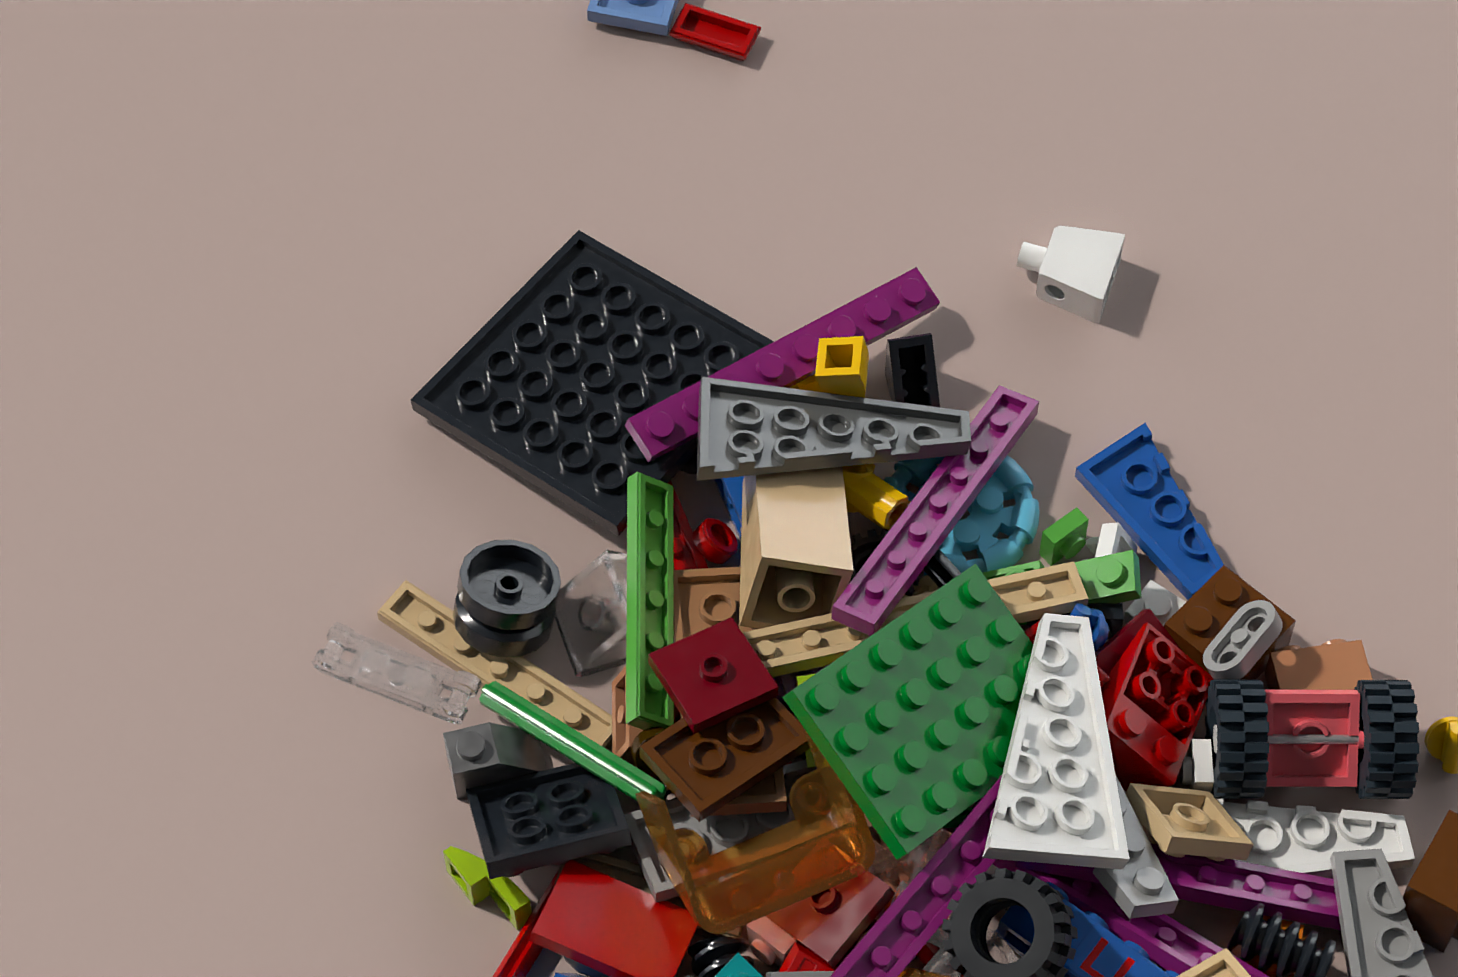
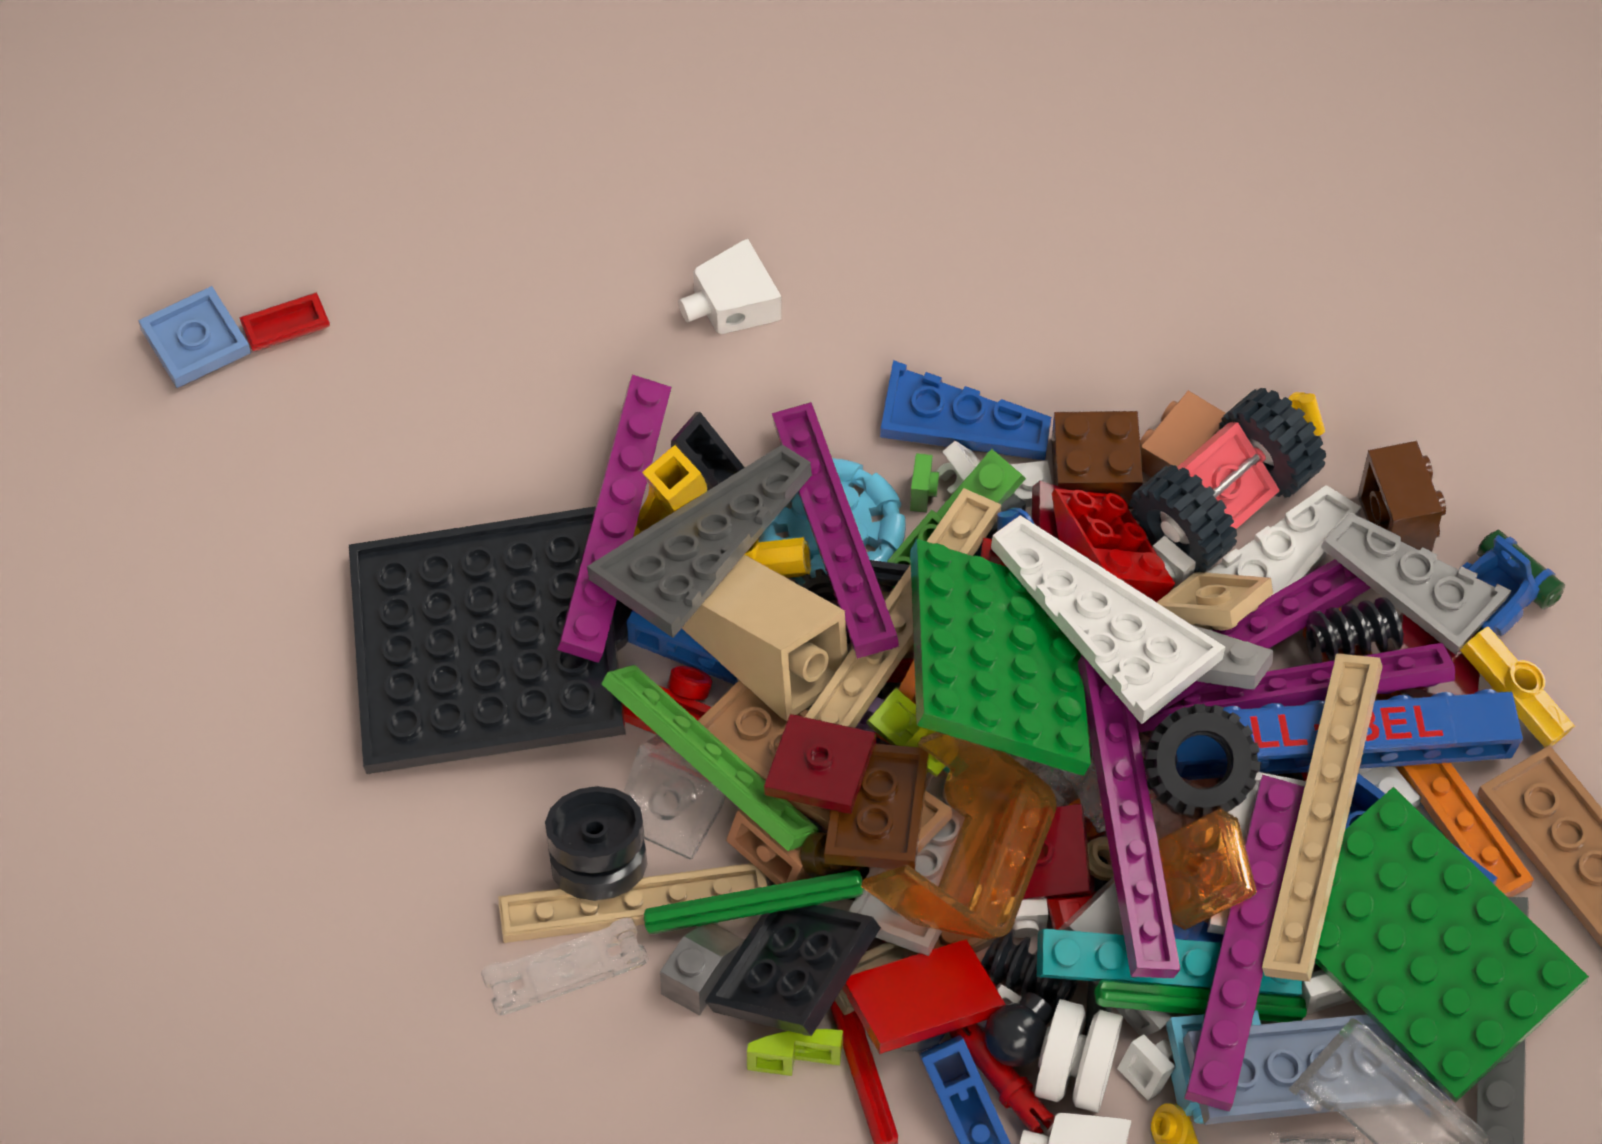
camera: 45 degrees left, 0 degrees up
(1242, 641) = (1127, 454): light grey plate -> none

